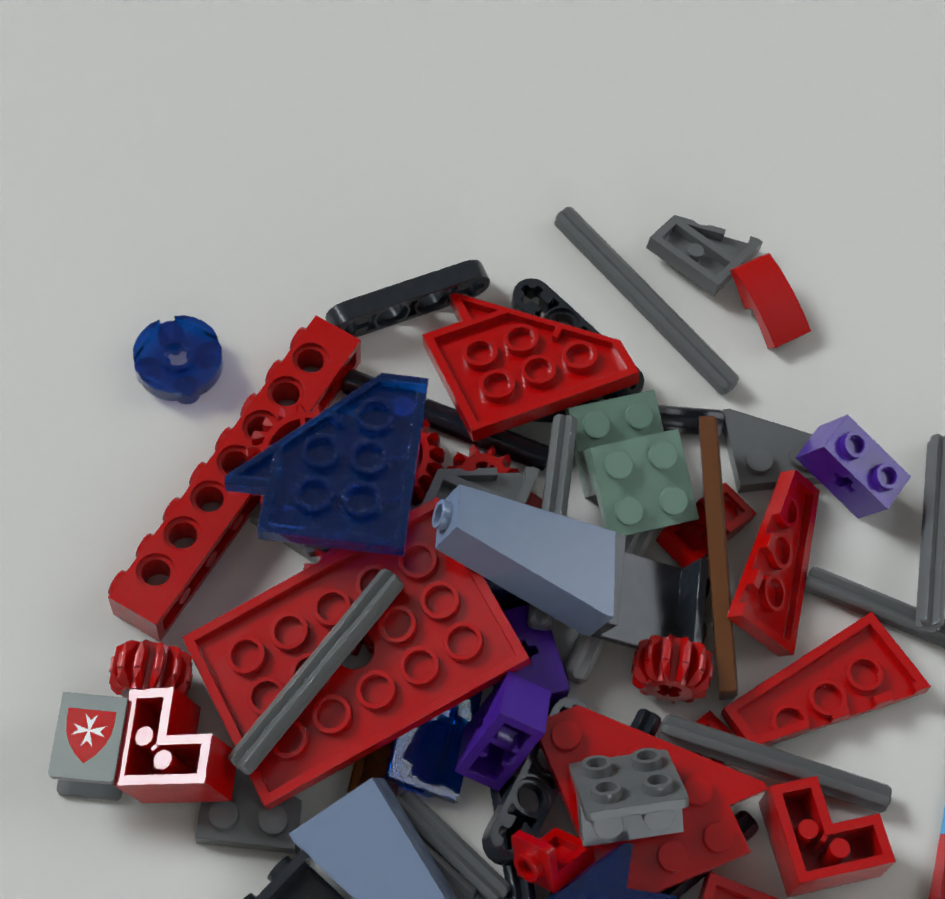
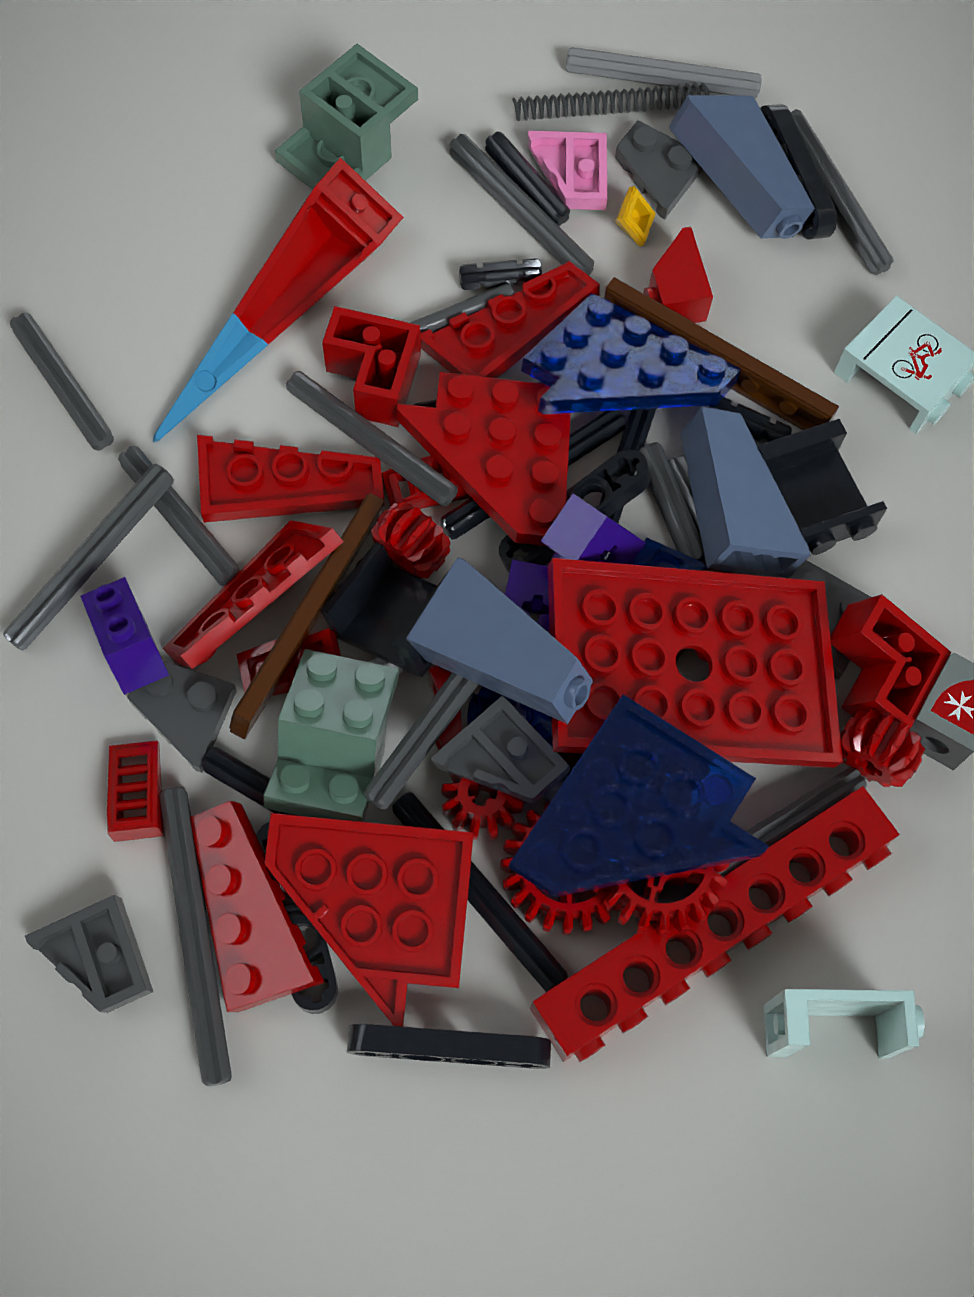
camera: 150 degrees left, 5 degrees up
(114, 437) = (896, 1016): none -> light aqua panel
(178, 382) = (758, 1099): clear blue plate -> none
(212, 576) = (804, 809): none -> dark grey axle
(315, 672) = (737, 652): dark grey axle -> none
(552, 859) = (604, 433): red bracket -> none
(597, 303) = (252, 934): none -> wing
(628, 796) = (525, 426): dark grey bracket -> none
(760, 350) = (141, 826): none -> red slope
(773, 301) = (68, 859): red slope -> none

